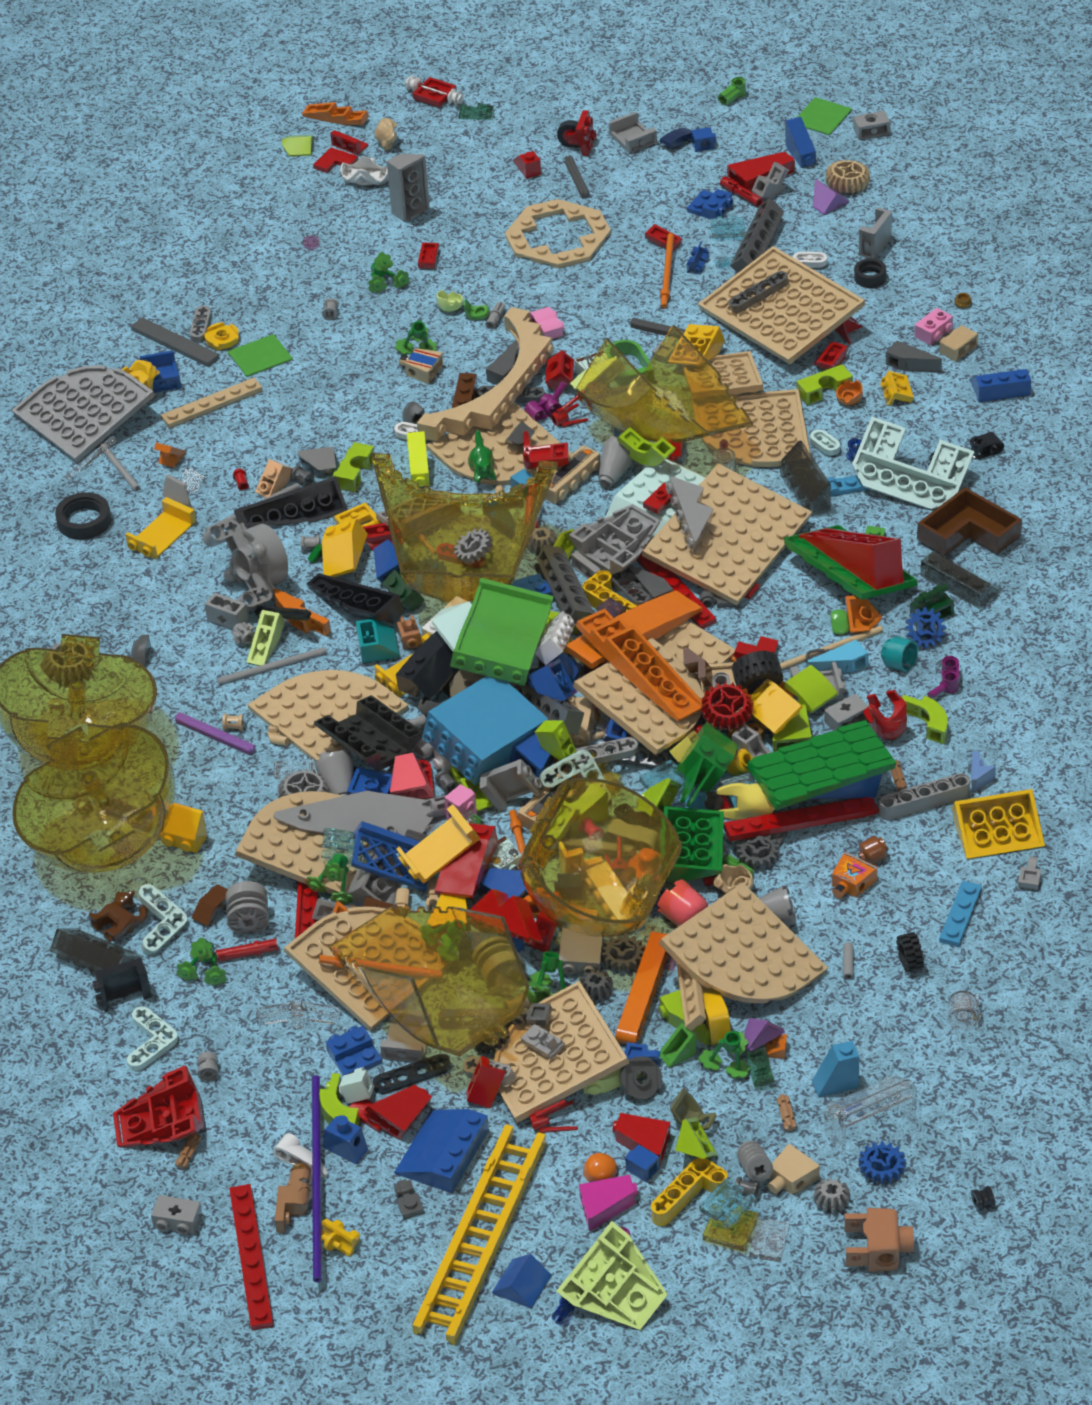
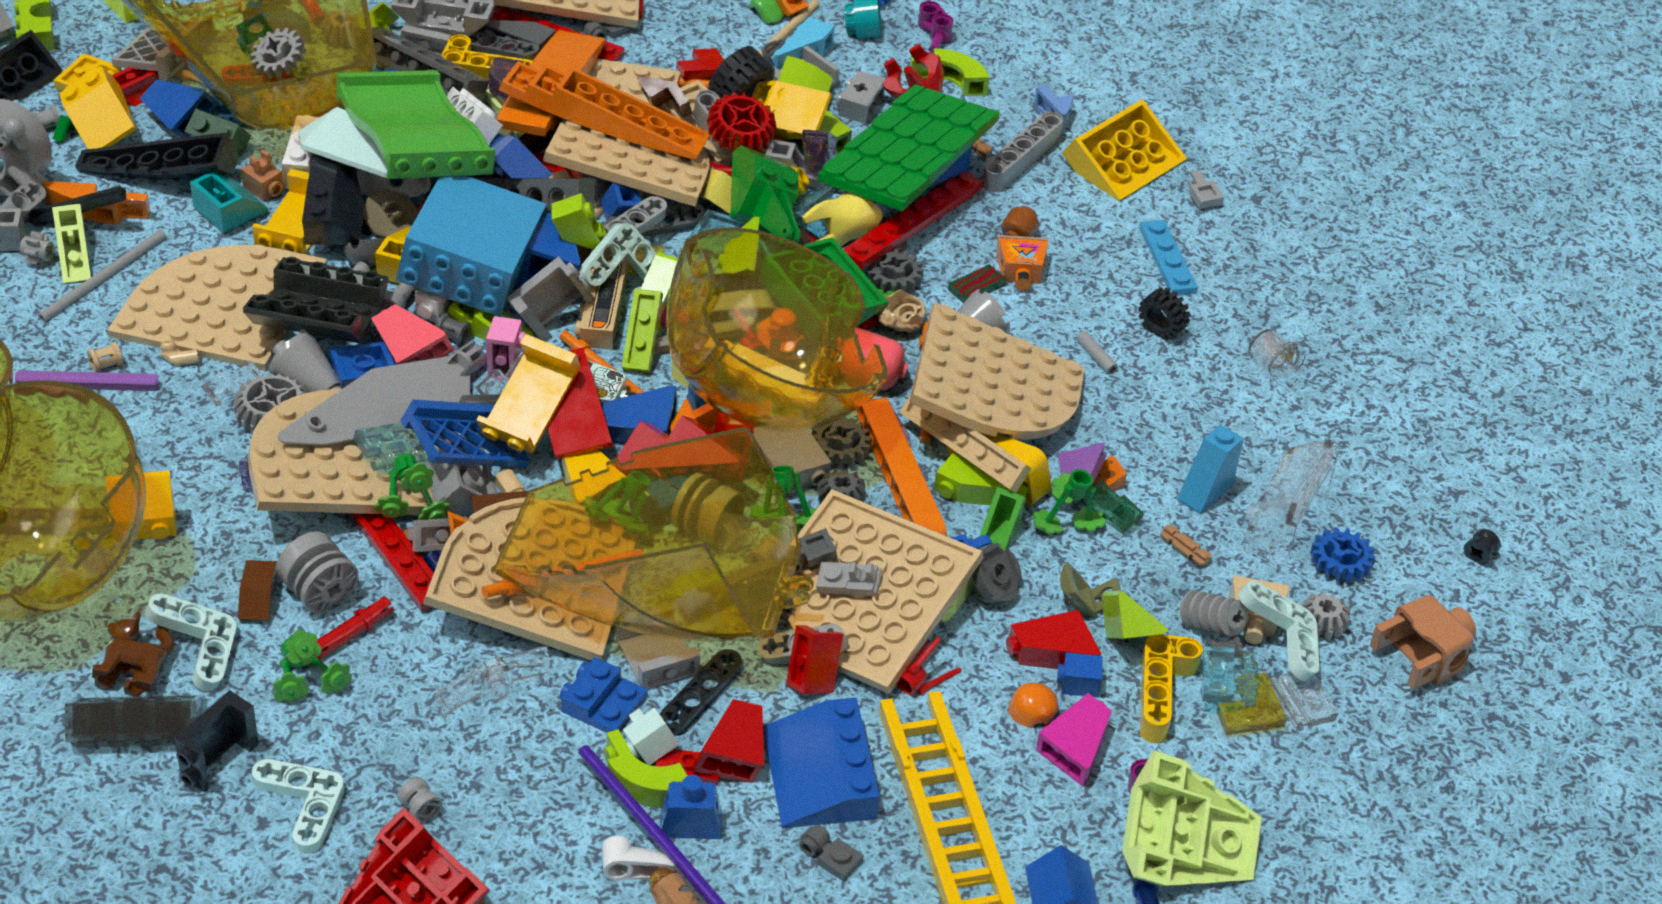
camera: 40 degrees left, 0 degrees up
(432, 898) = (545, 464): tan bar -> none
(463, 526) = (246, 37): none -> clear green bracket
(767, 741) = (818, 149): none -> slope
(796, 1192) = (1295, 619): none -> light aqua beam
(809, 881) = (984, 279): none -> tile

